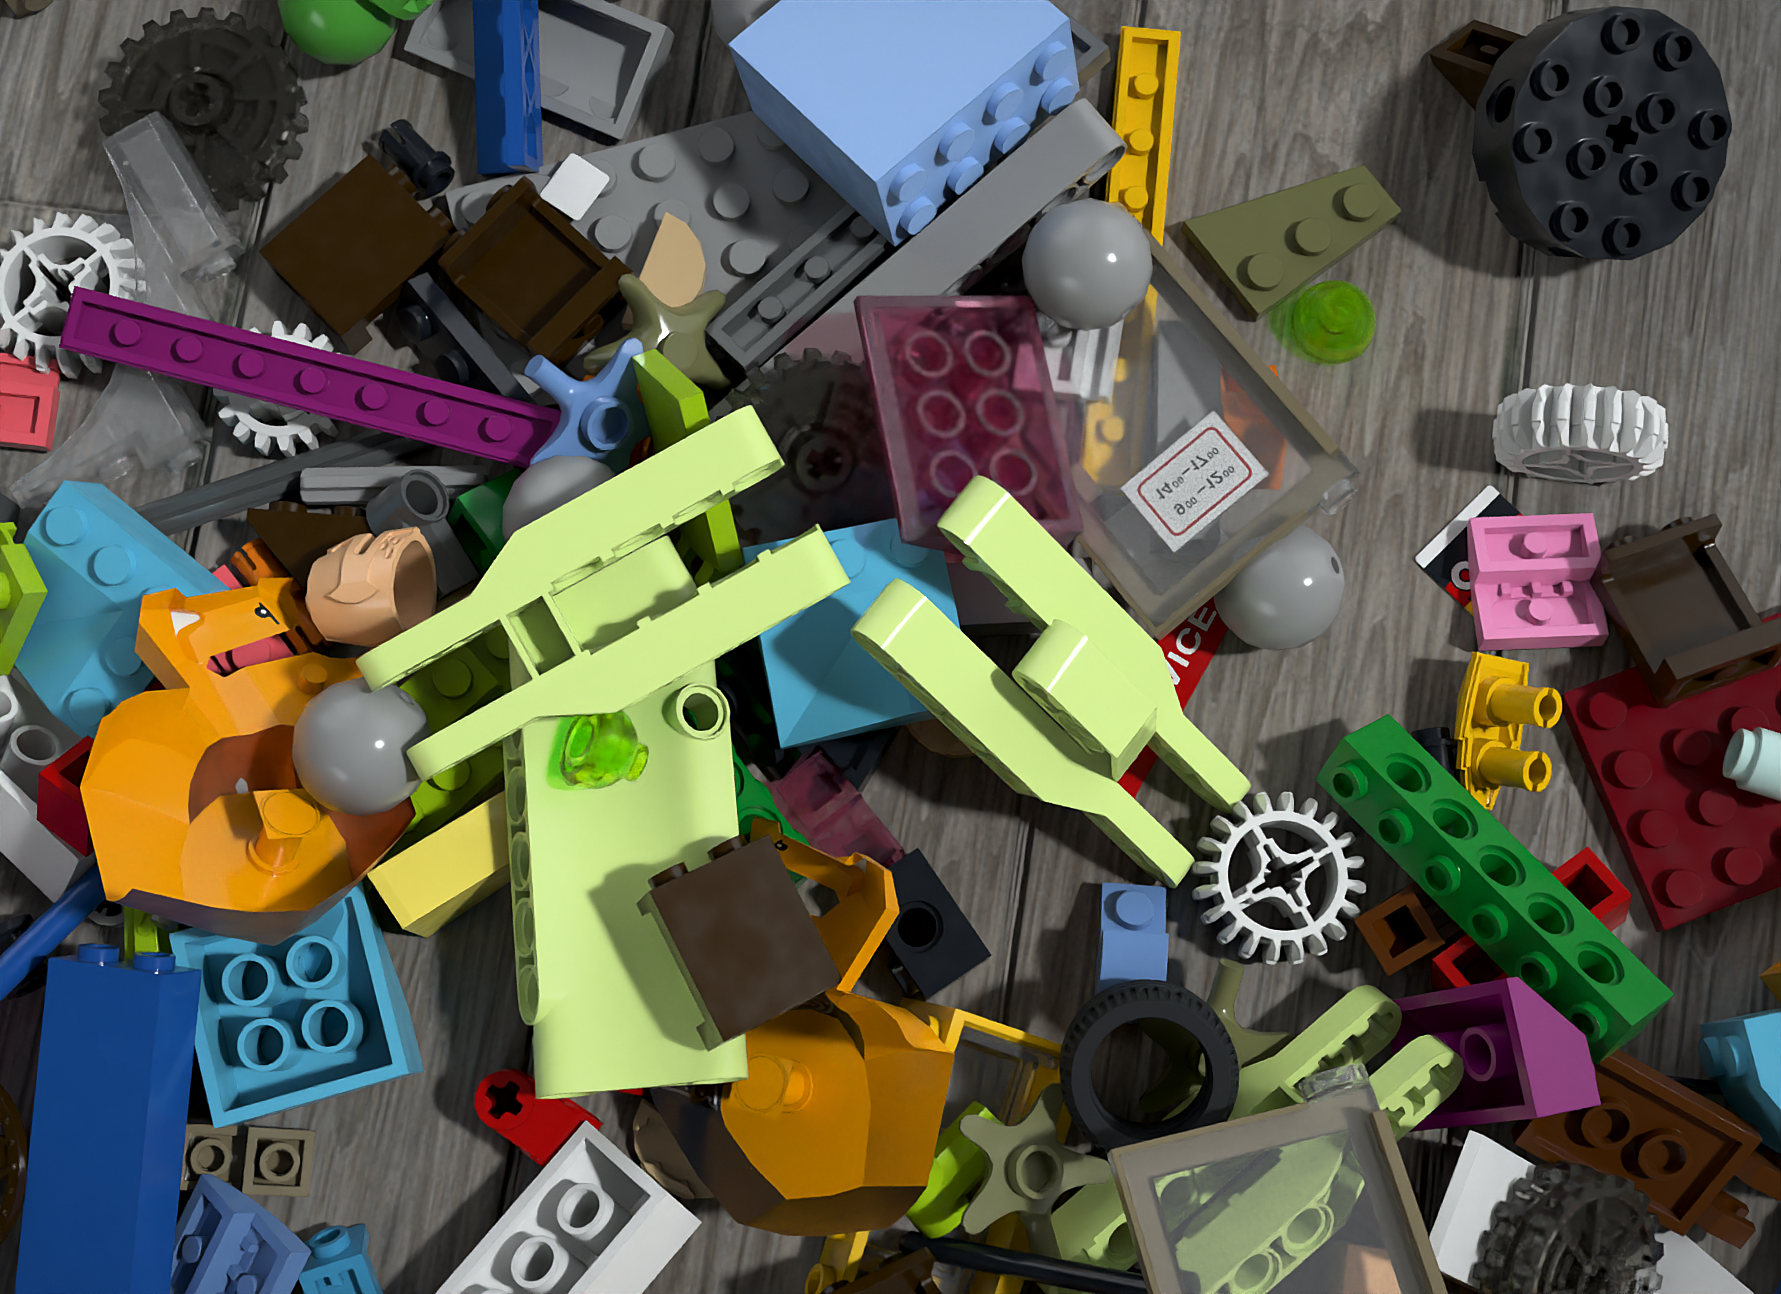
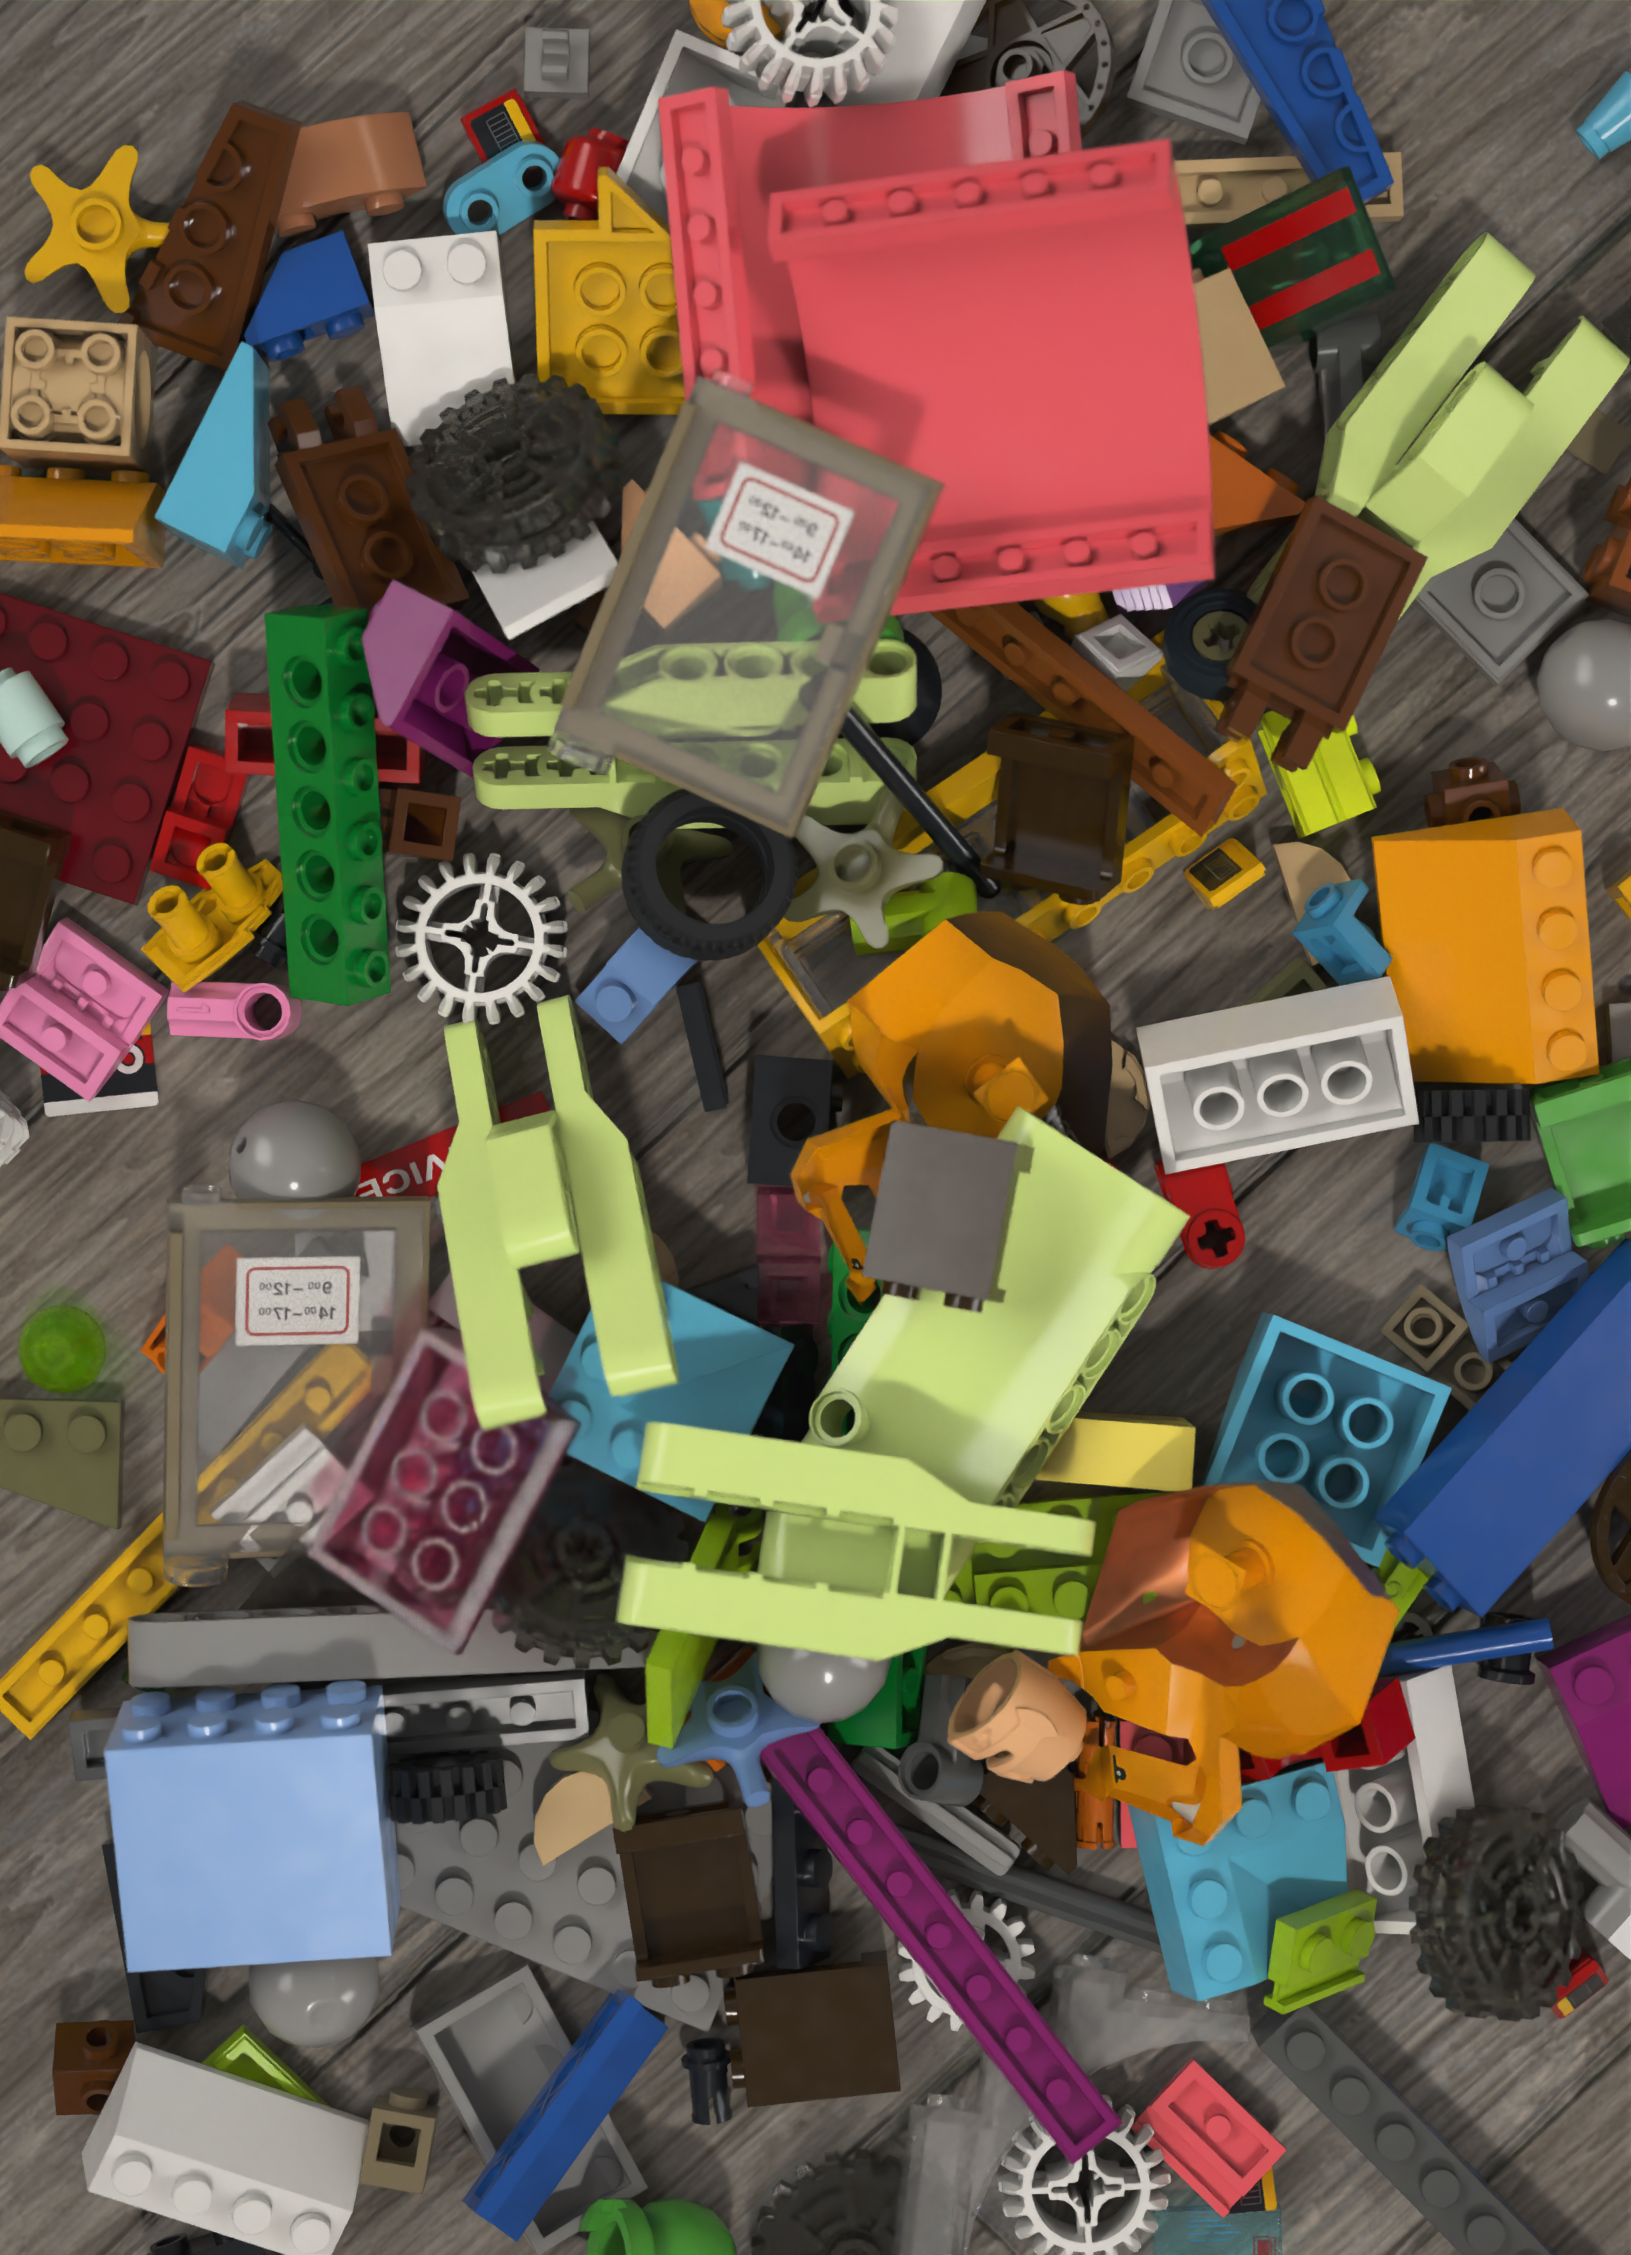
camera: 140 degrees left, 10 degrees up
(355, 745) = (1124, 1593): light grey piece -> none
(574, 186) = (598, 1950): white sticker -> none
(601, 751) = (941, 1442): clear neon green brick -> none
(784, 208) = (446, 1787): none -> black tyre
(1037, 930) = (703, 1046): none -> black tile
(1087, 264) = (242, 1543): light grey piece -> none
(1422, 669) = (228, 1010): none -> bright pink piece
(1570, 805) = (200, 814): none -> red slope

